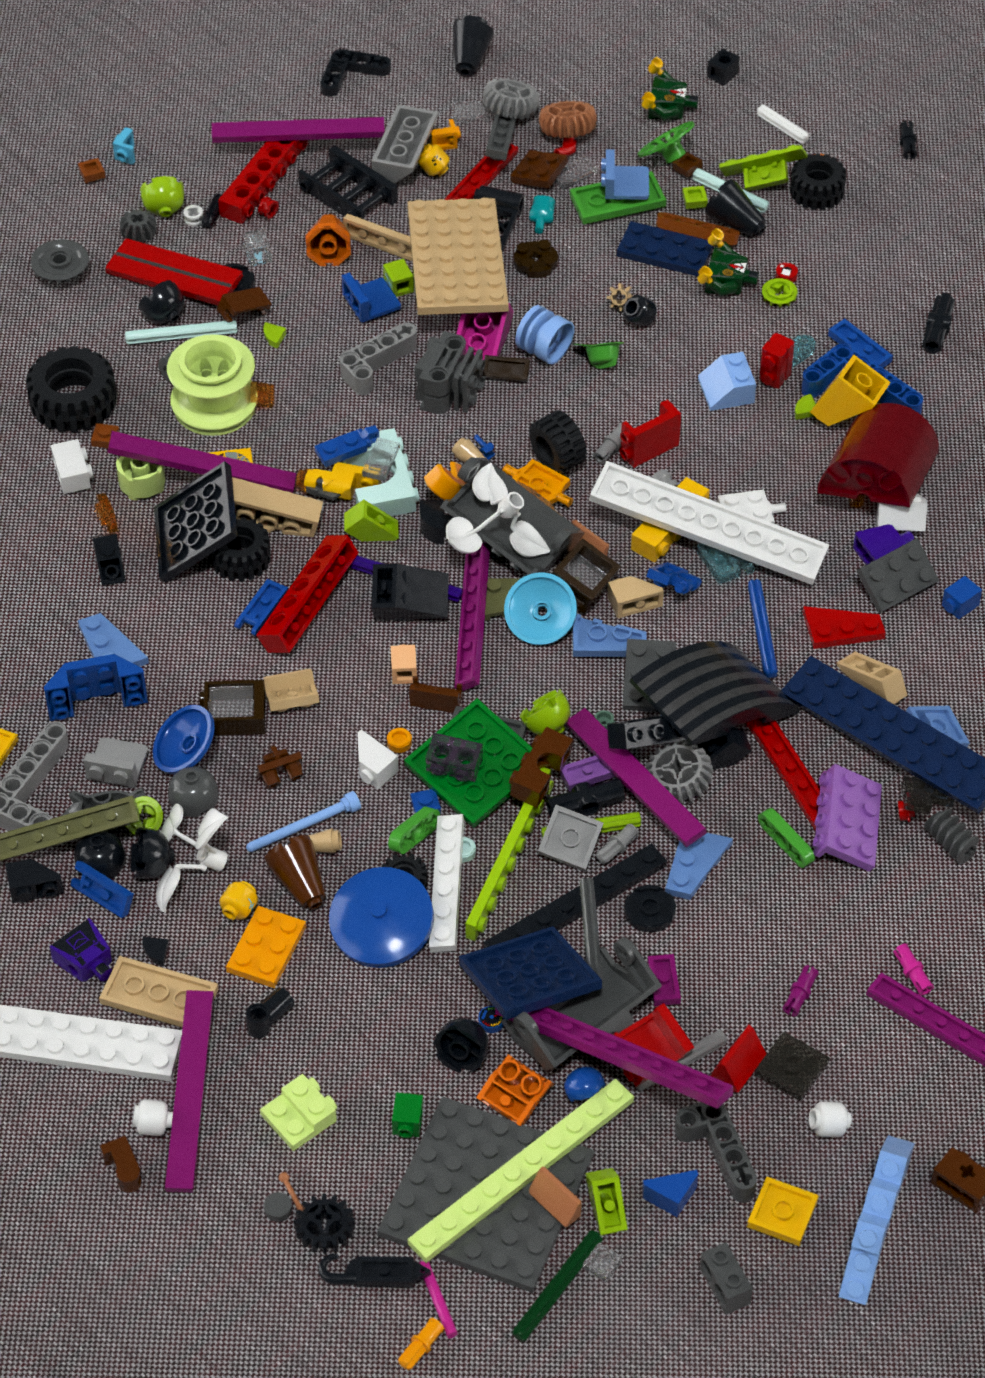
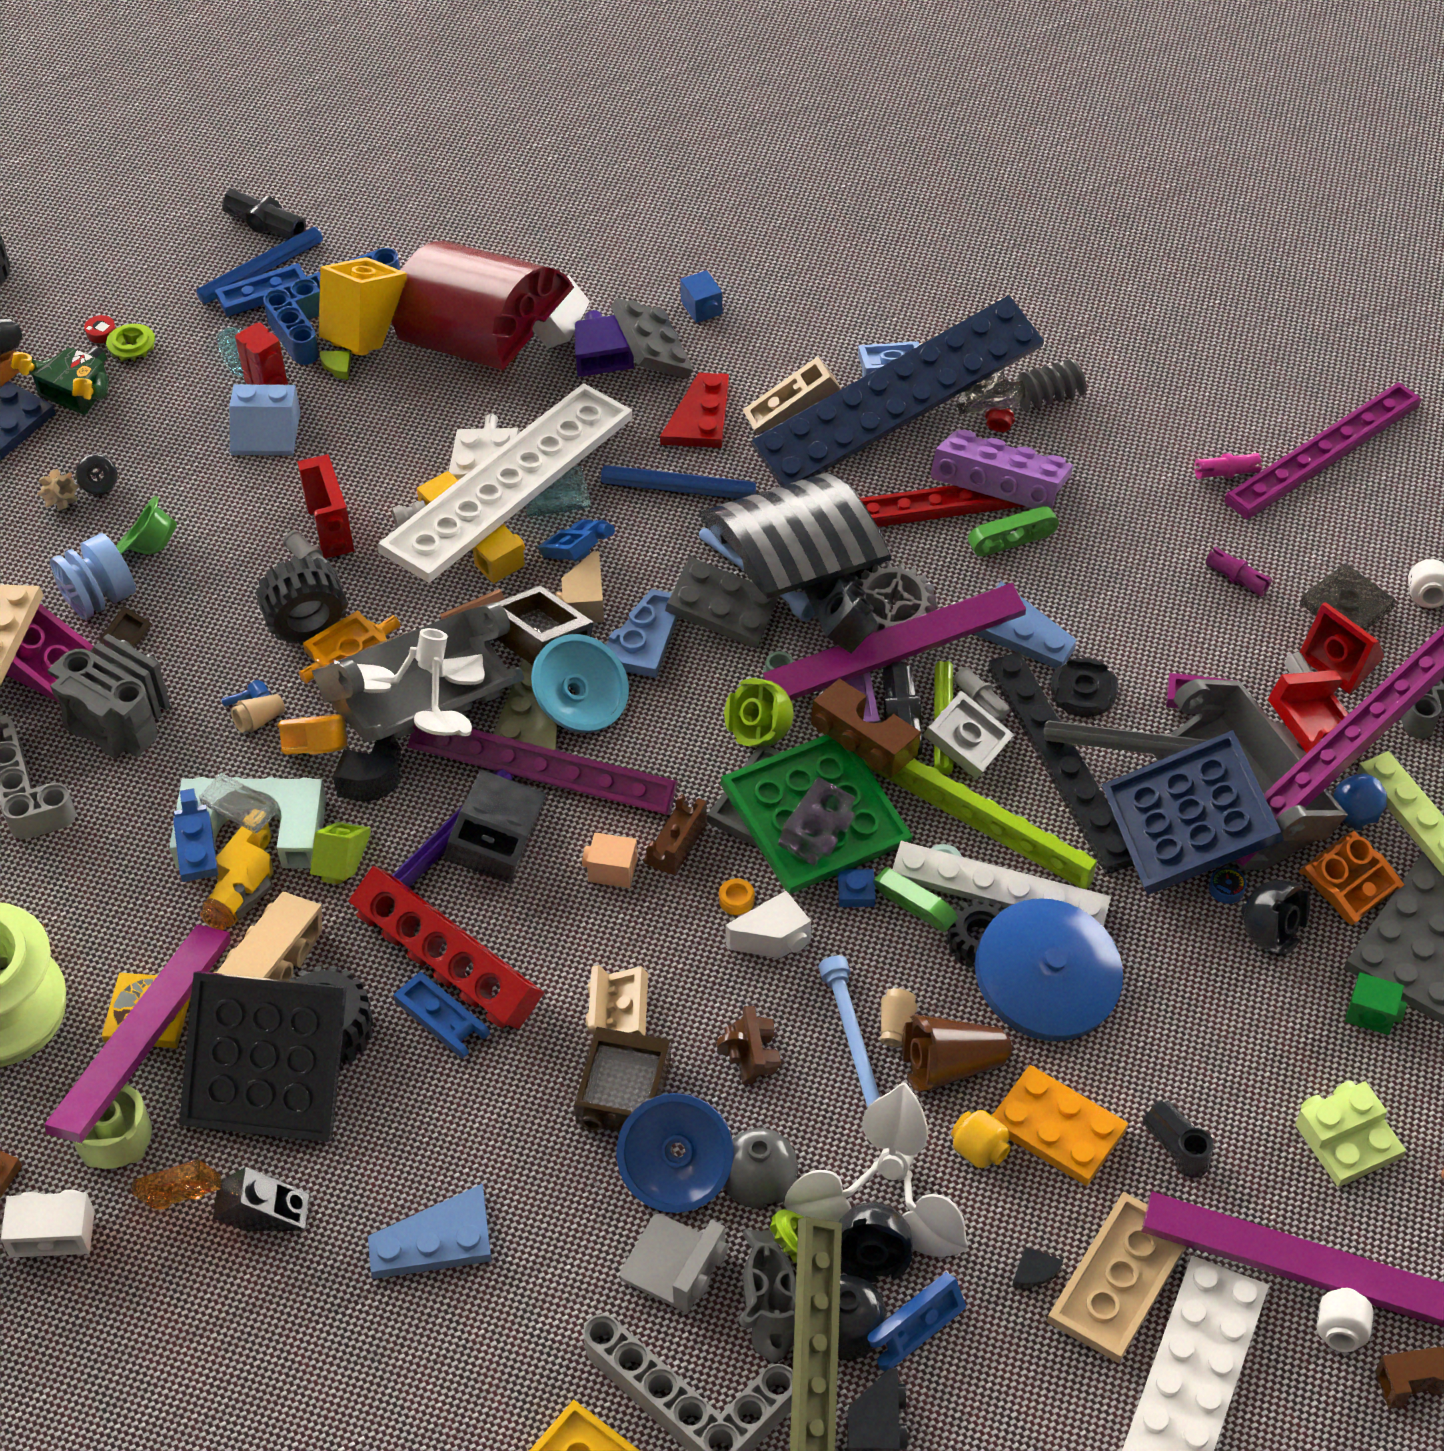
camera: 75 degrees left, 0 degrees up
(83, 953) = (1030, 1365): dark purple torso -> none
(91, 679) = (531, 1217): blue slope -> none
(890, 338) = (262, 263): none -> blue axle

